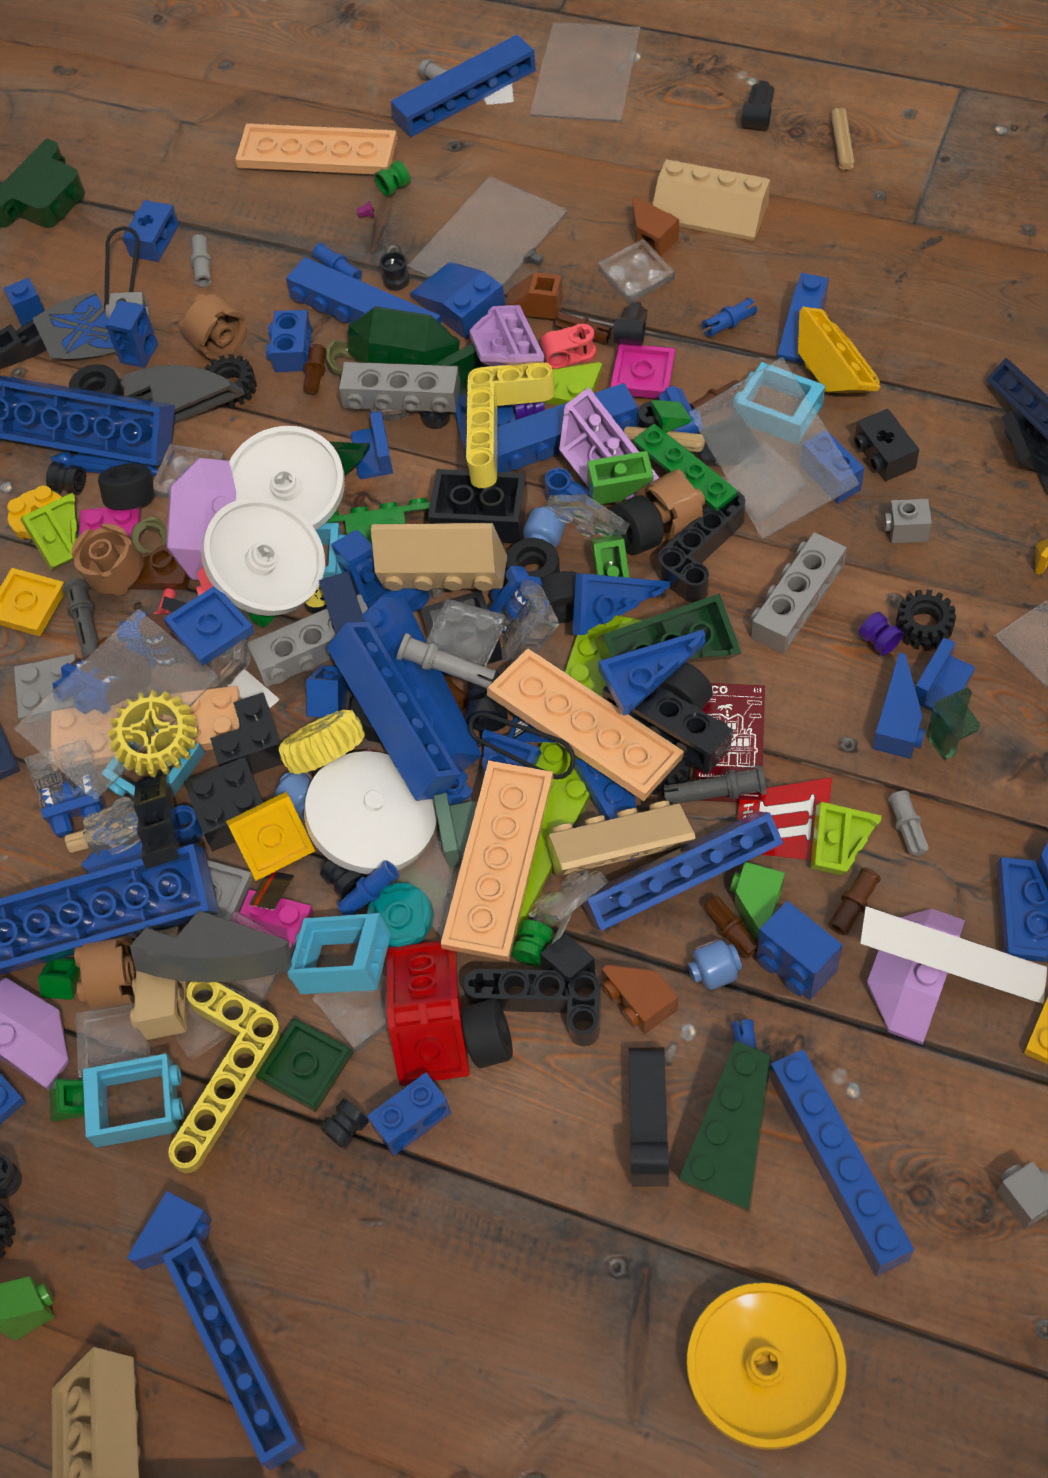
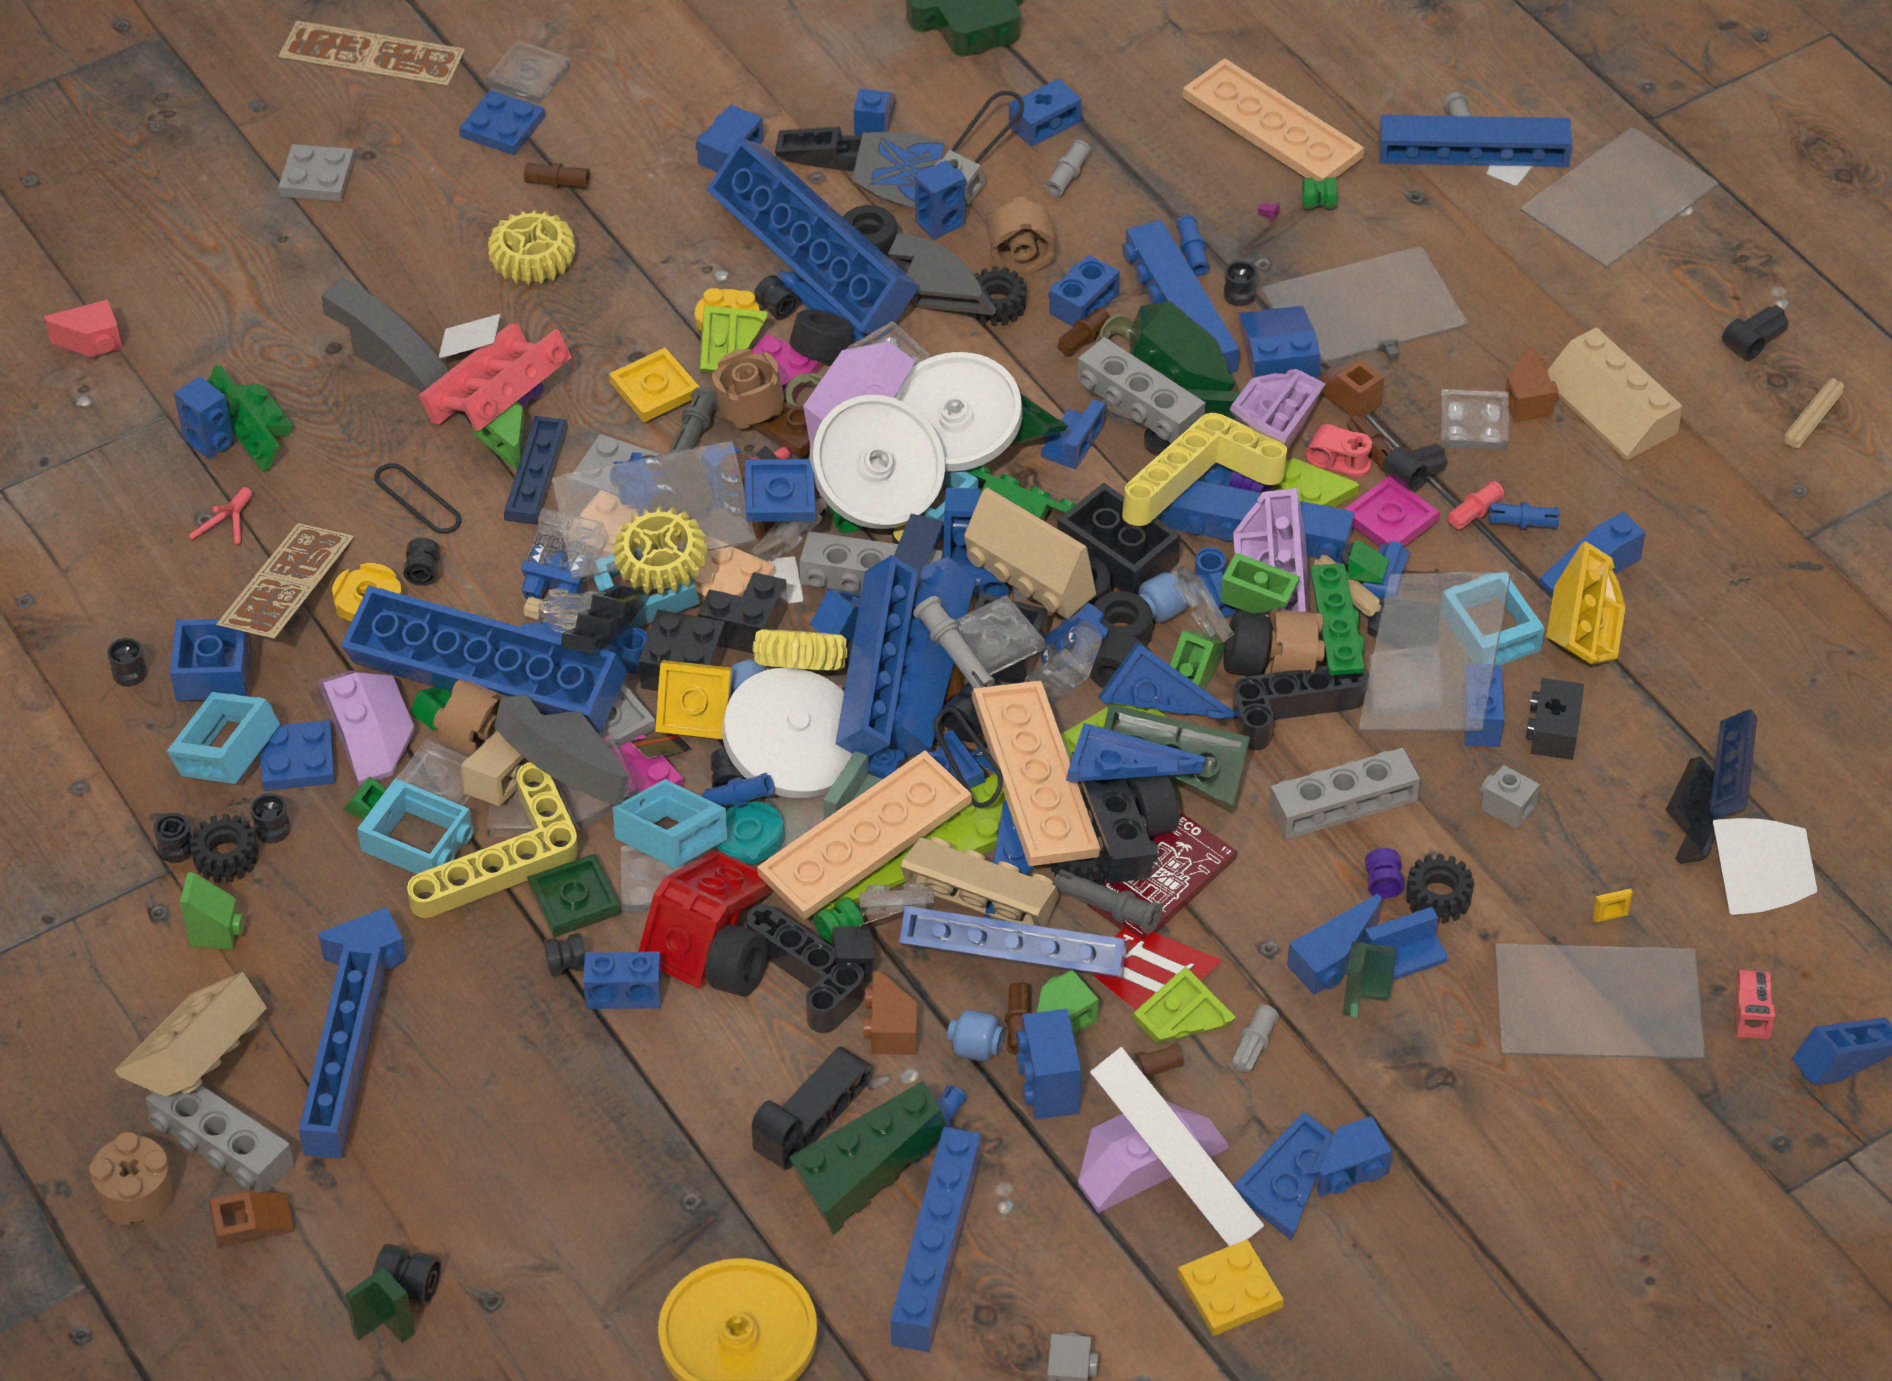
camera: 30 degrees right, 10 degrees down
(692, 329) = (1476, 505): none -> coral axle

